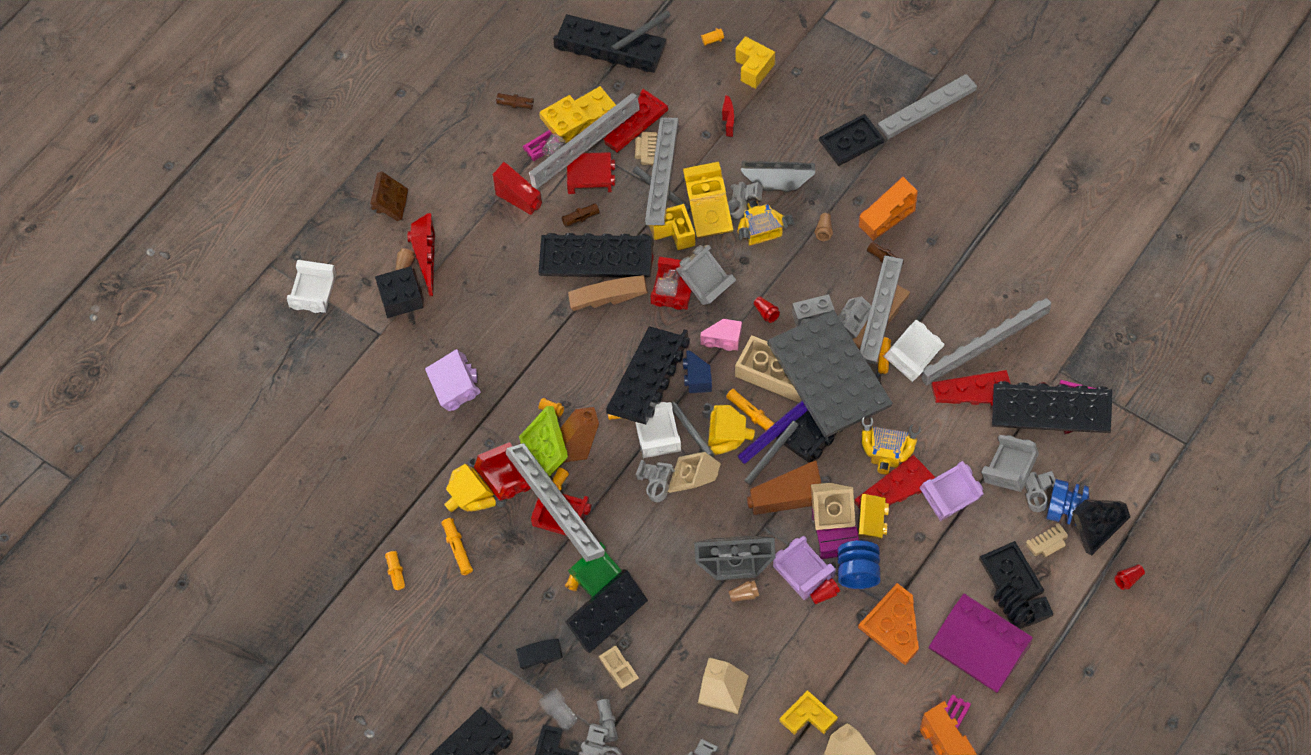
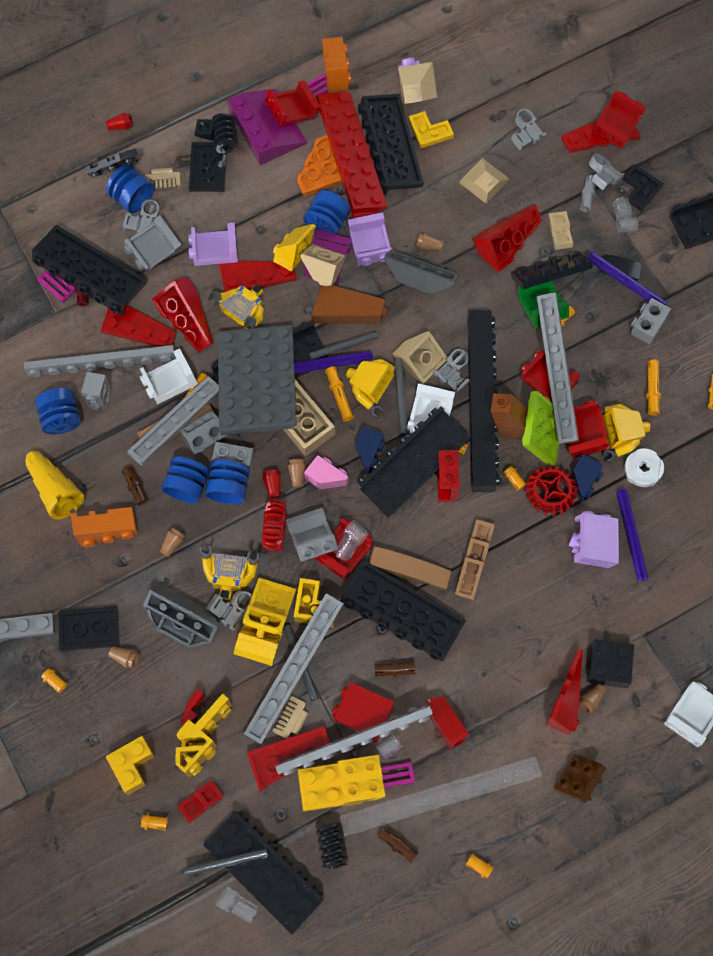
camera: 155 degrees left, 10 degrees up
(423, 407) = (632, 535): none -> dark purple axle
(435, 478) = (636, 475): none -> white plate
(443, 113) = (479, 866): none -> light orange pin
(483, 608) = (652, 322): none -> light grey brick
(487, 433) = (585, 474): none -> dark blue slope
(490, 148) = (440, 796): none -> clear plate
(504, 403) = (557, 494): none -> red gear
(526, 636) = (624, 278): none -> dark purple axle
(554, 326) = (474, 559): none -> medium nougat slope
(565, 75) = (331, 846): none -> black piece
(608, 367) = (448, 476): none -> red panel
(618, 468) = (481, 395): none -> black brick
(623, 14) = (233, 903): none -> clear piece
(672, 623) = (502, 241): none -> red wedge
(685, 64) = (200, 802): none -> red slope
(708, 94) = (200, 745): none -> yellow piece
(742, 268) = (274, 525): none -> red gear
(750, 327) = (296, 471): none -> medium nougat cone
(803, 281) = (227, 482): none -> blue wheel
(808, 130) = (126, 657): none -> medium nougat cone
(840, 680) = (390, 142): none -> black bracket
(841, 270) = (185, 480): none -> blue wheel
(854, 92) = (54, 680): none -> light orange pin
(875, 648) = (351, 152): none -> red plate
(945, 425) = (183, 308): none -> red wedge
(953, 220) = (55, 489): none -> yellow cone
(966, 670) = (293, 105): none -> red panel
(969, 307) = (96, 391): none -> light grey brick
(991, 276) = (57, 411): none -> blue wheel

